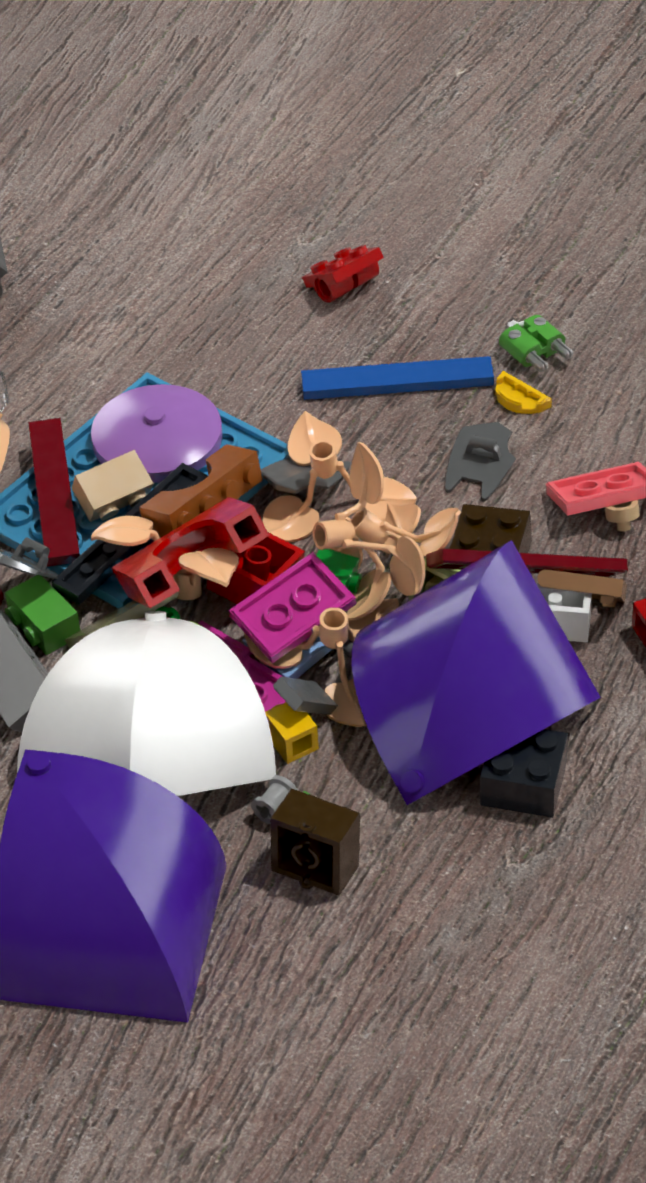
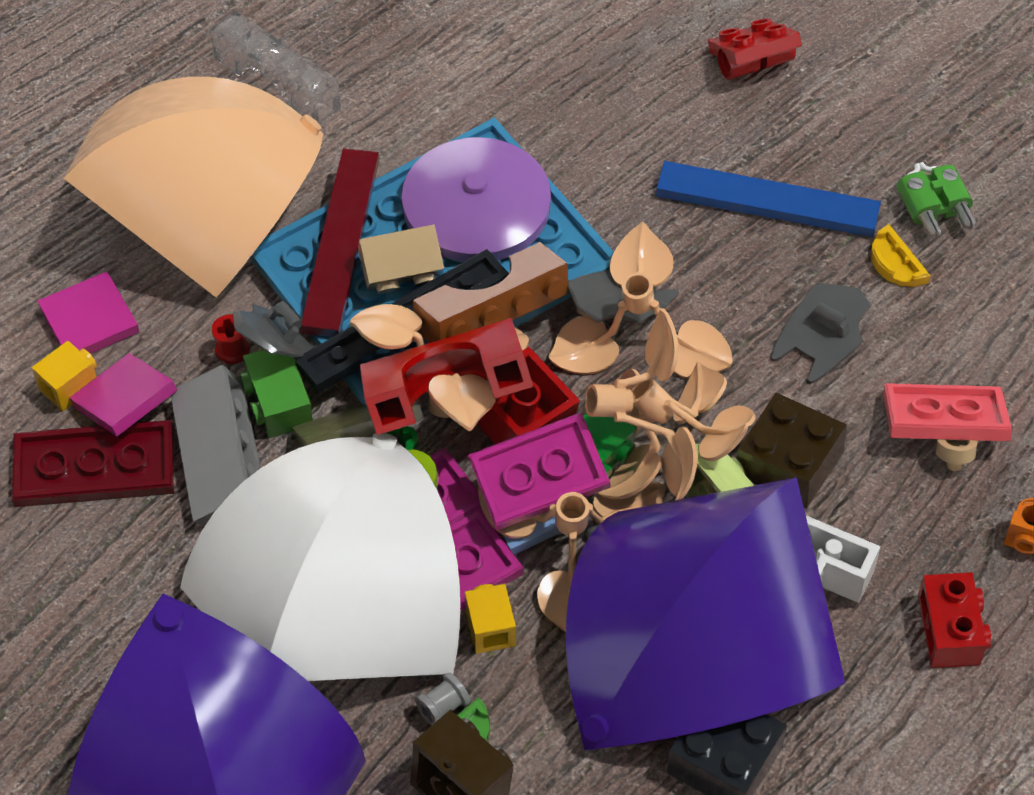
camera: 15 degrees right, 10 degrees up
(304, 696) = (515, 585): dark grey tile -> none
(596, 566) = (822, 495): dark red tile -> none
(605, 589) = (874, 536): medium nougat container -> none

